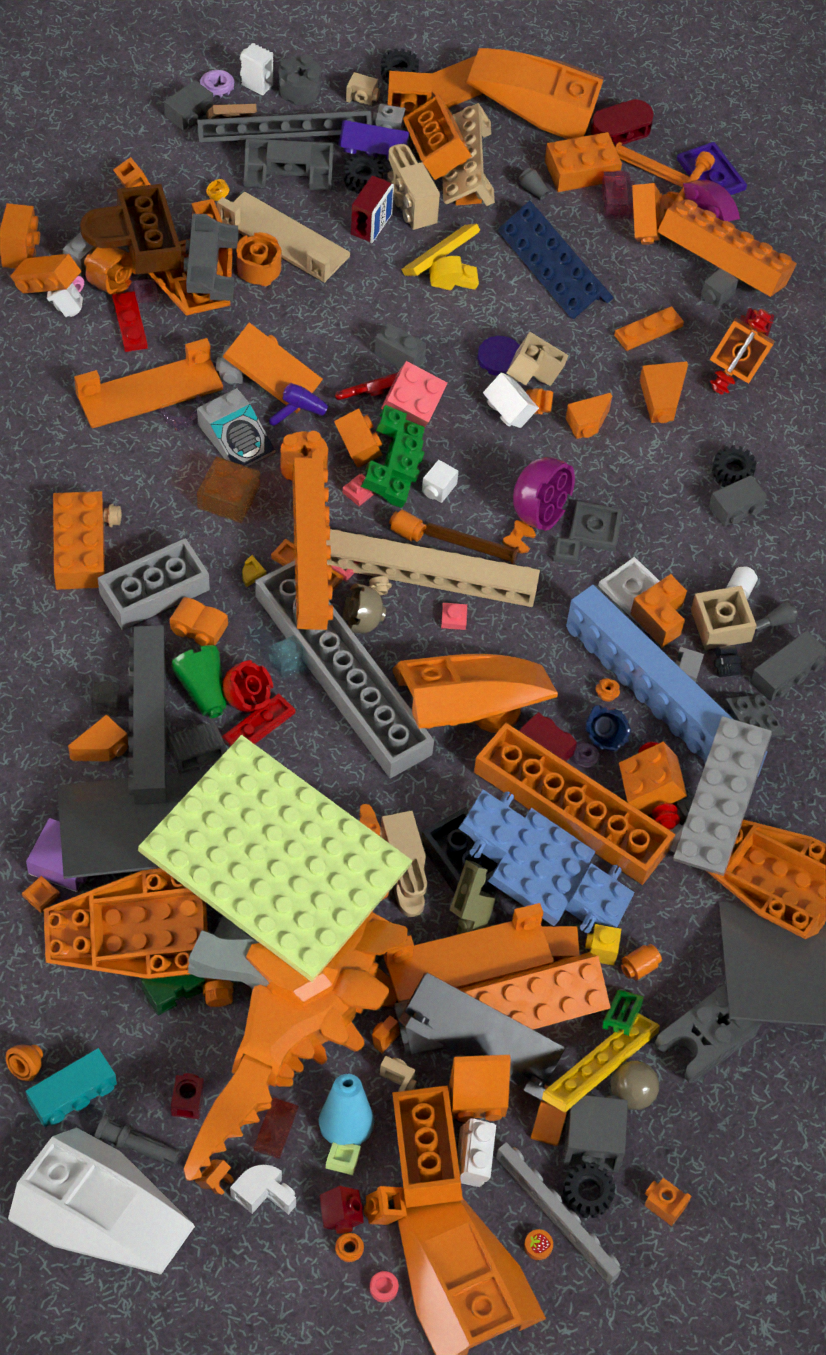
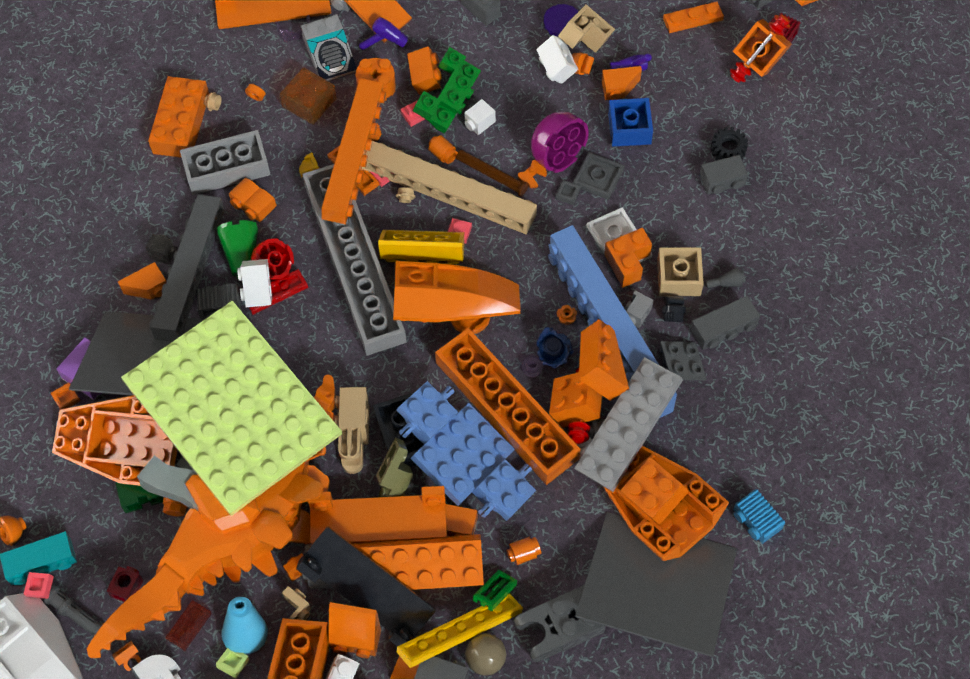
camera: 20 degrees right, 5 degrees up
(86, 1117) = (38, 585): none -> coral tile
(162, 496) = (255, 92): none -> orange tile
(240, 715) = (256, 283): none -> white brick
(288, 657) = (313, 241): clear light blue brick -> none
(366, 607) = (385, 212): dark tan cylinder -> none
(373, 387) = (453, 30): red plate -> none
(415, 393) = (478, 42): coral brick -> none
(421, 640) = (421, 245): none -> yellow slope
(549, 736) = (502, 346): dark red brick -> none
(597, 389) = (633, 61): none -> dark purple piece
(604, 943) = (496, 529): yellow brick -> none
(616, 458) = (630, 122): none -> blue brick
(662, 389) = (689, 70): orange slope -> none
(674, 729) = (601, 361): none -> orange wedge
(743, 577) = (708, 243): white brick -> none
(773, 863) = (654, 490): none -> orange brick

